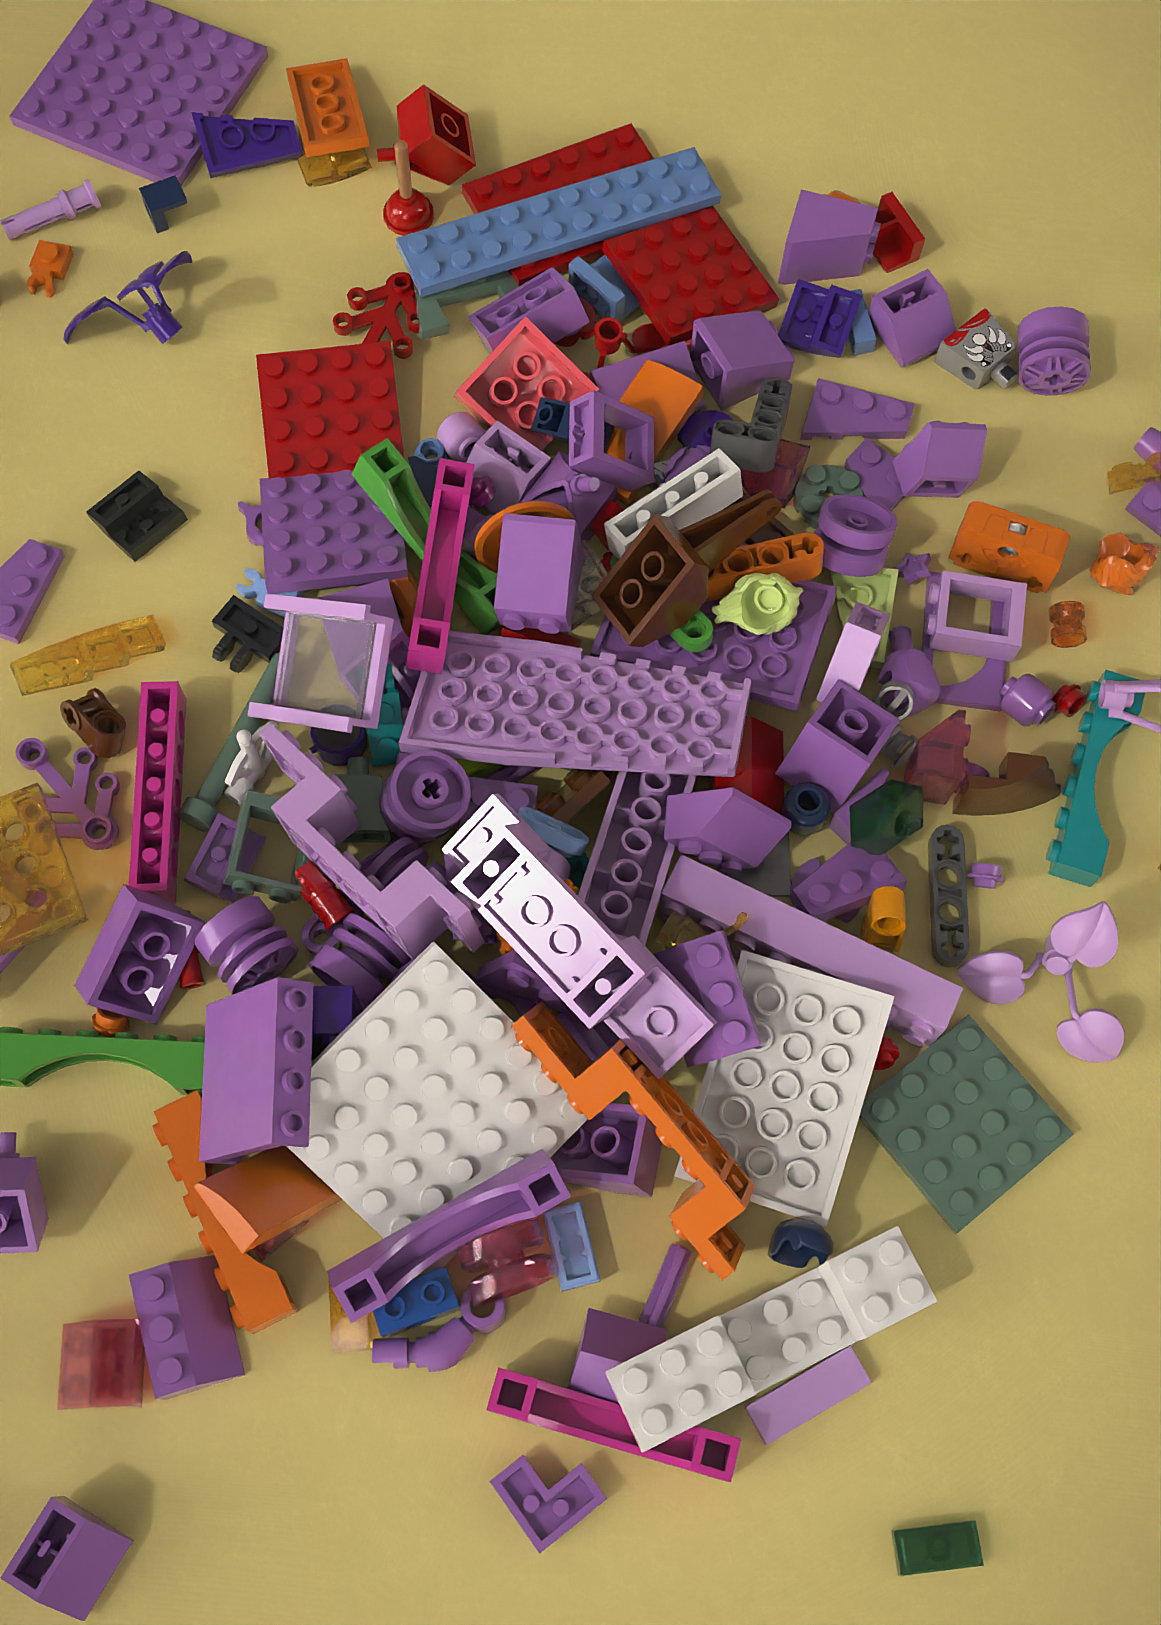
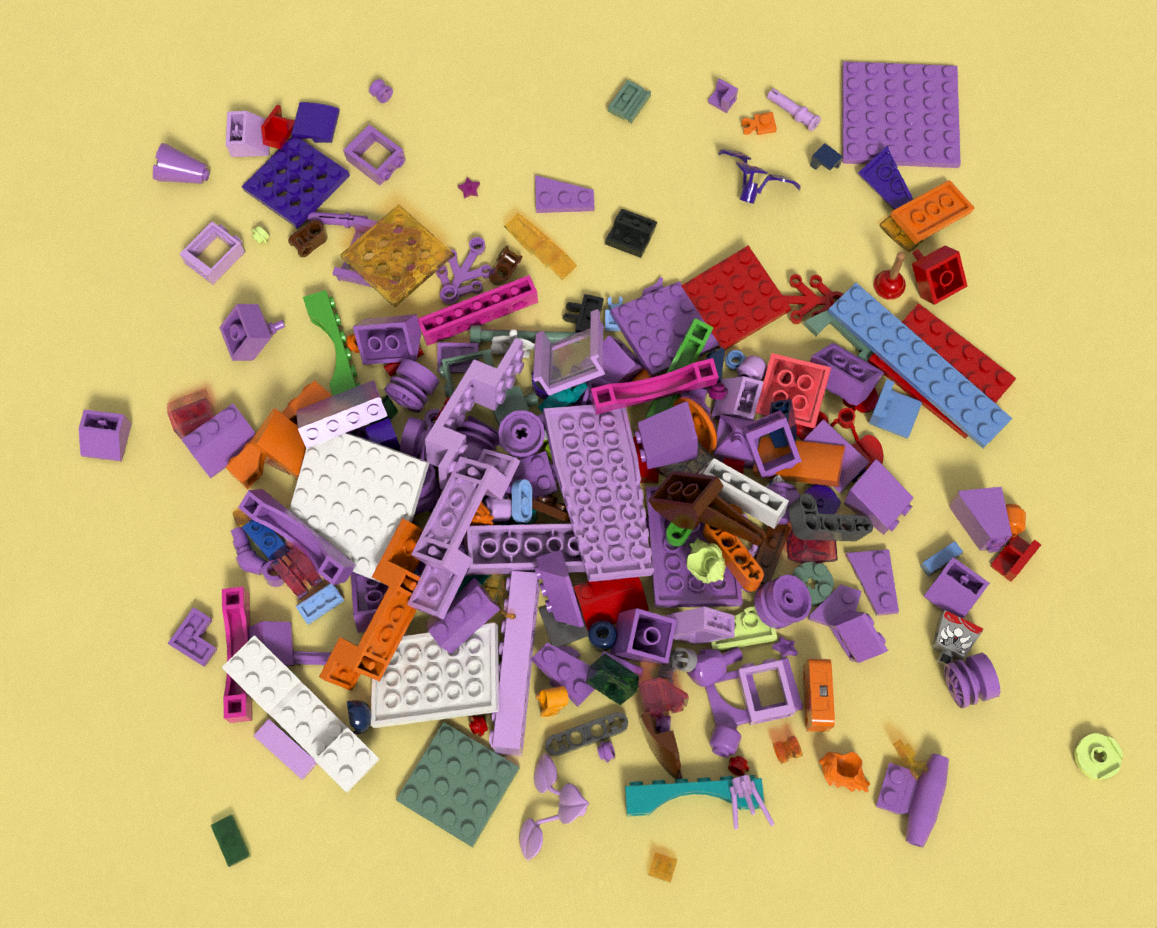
camera: 75 degrees right, 0 degrees up
(688, 272) = (924, 451): red plate -> none
(819, 319) = (929, 534): dark purple slope -> none

